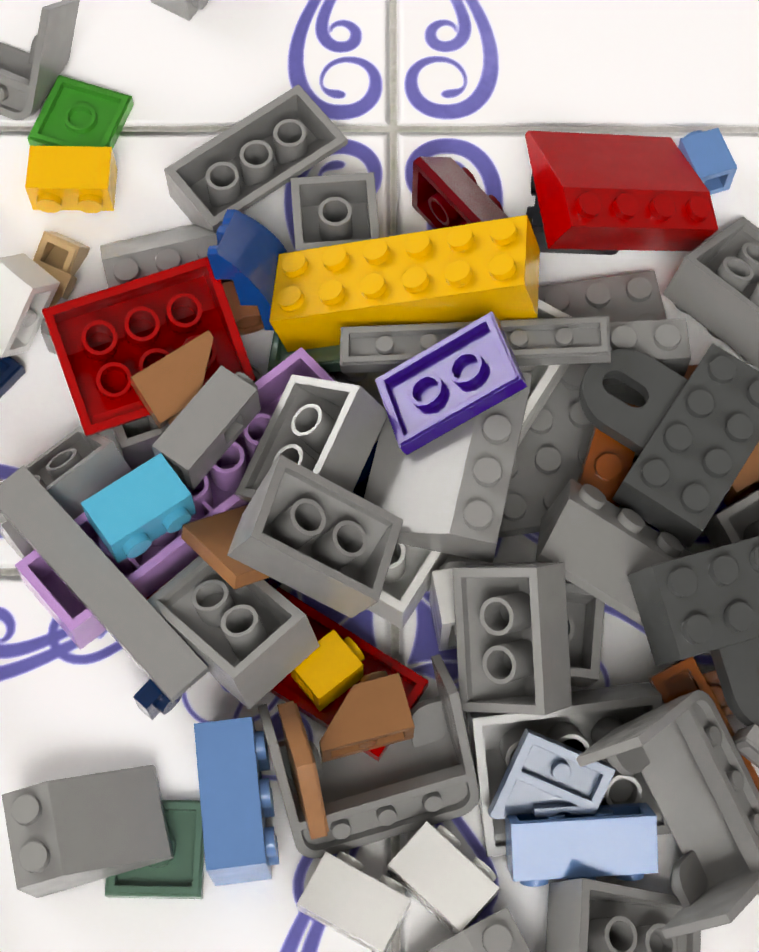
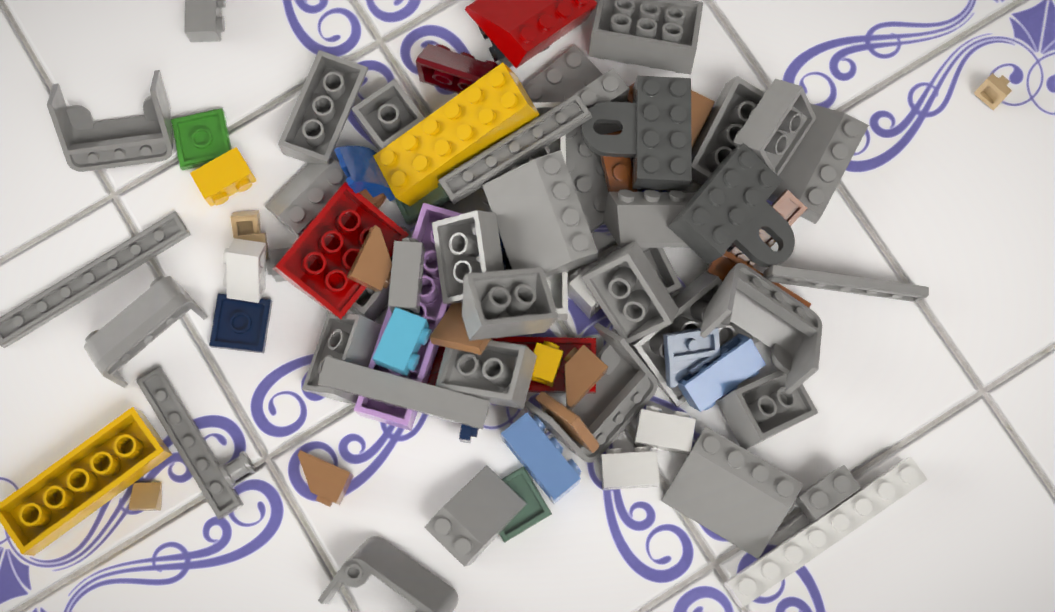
camera: 30 degrees left, 10 degrees up
(450, 383) = (520, 180): tile -> none

